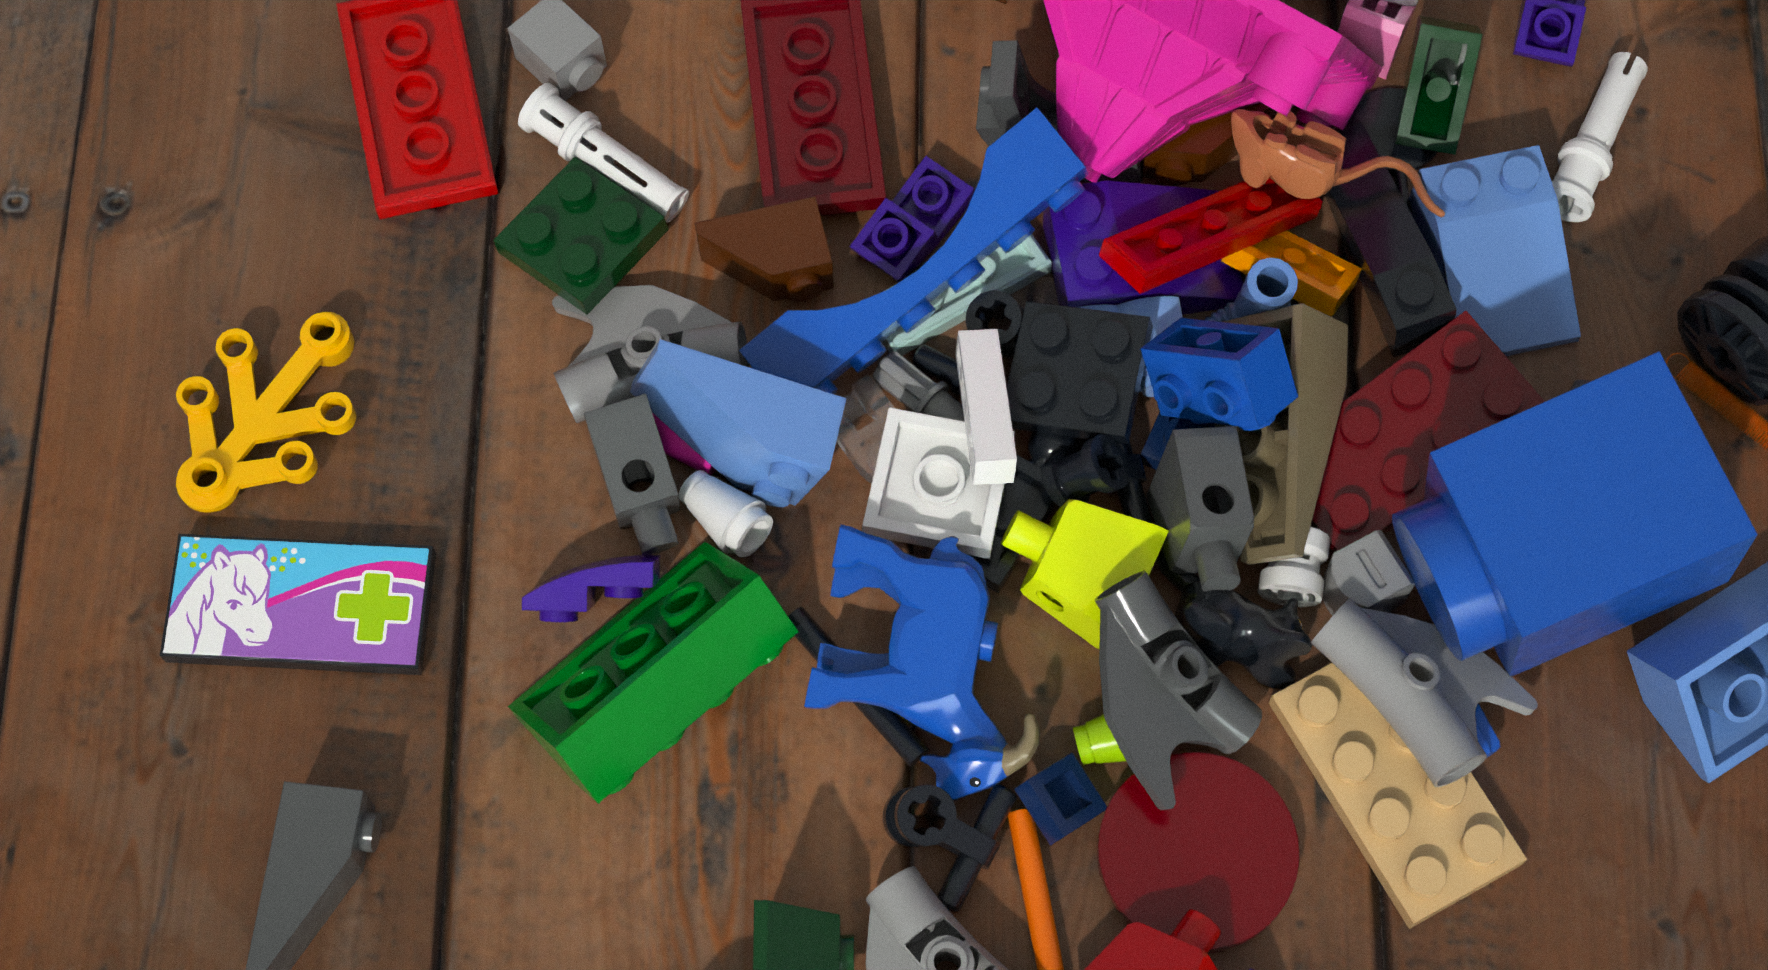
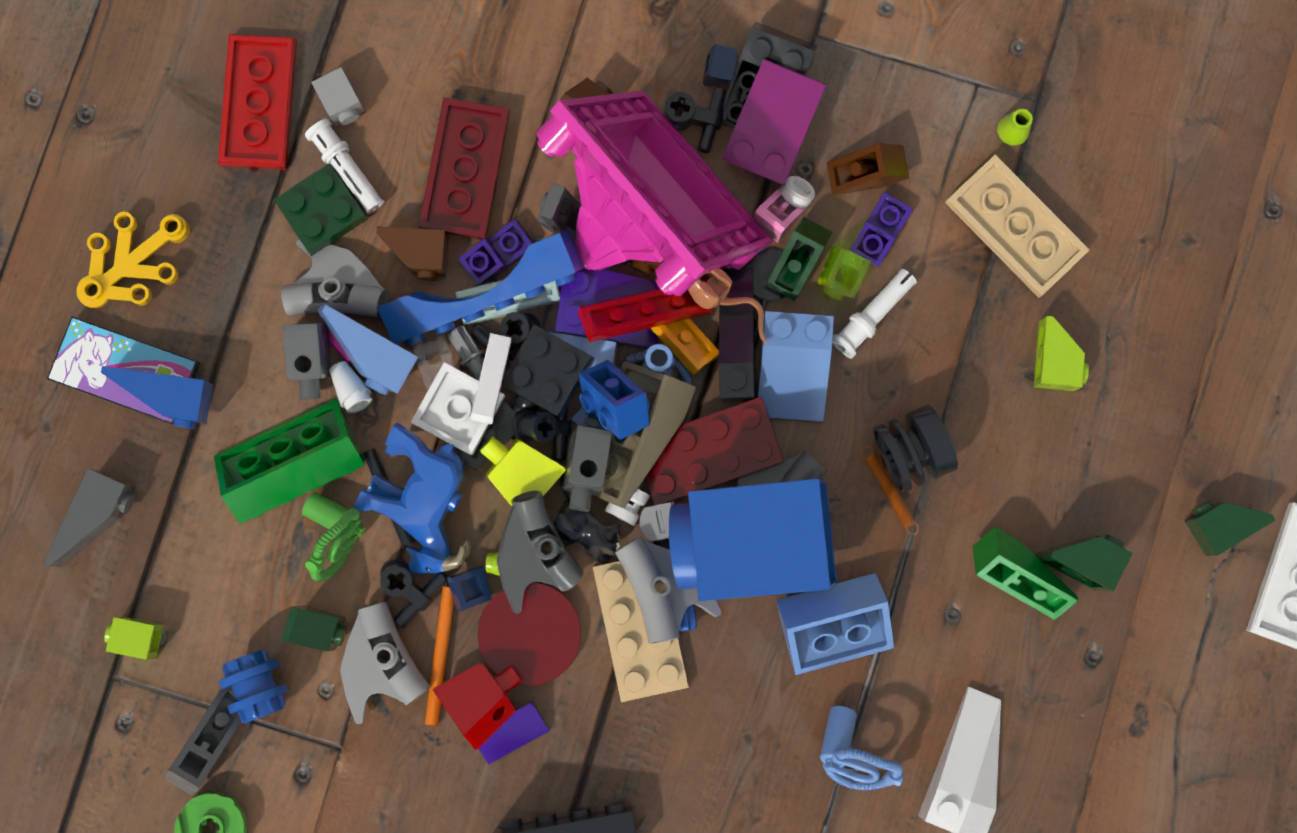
camera: 15 degrees right, 15 degrees up
(405, 609) = (171, 396): none -> blue slope
(575, 590) = (259, 407): dark purple slope -> none
(779, 748) = (342, 524): none -> bright green piece
(1520, 84) = (853, 272): none -> clear neon green brick

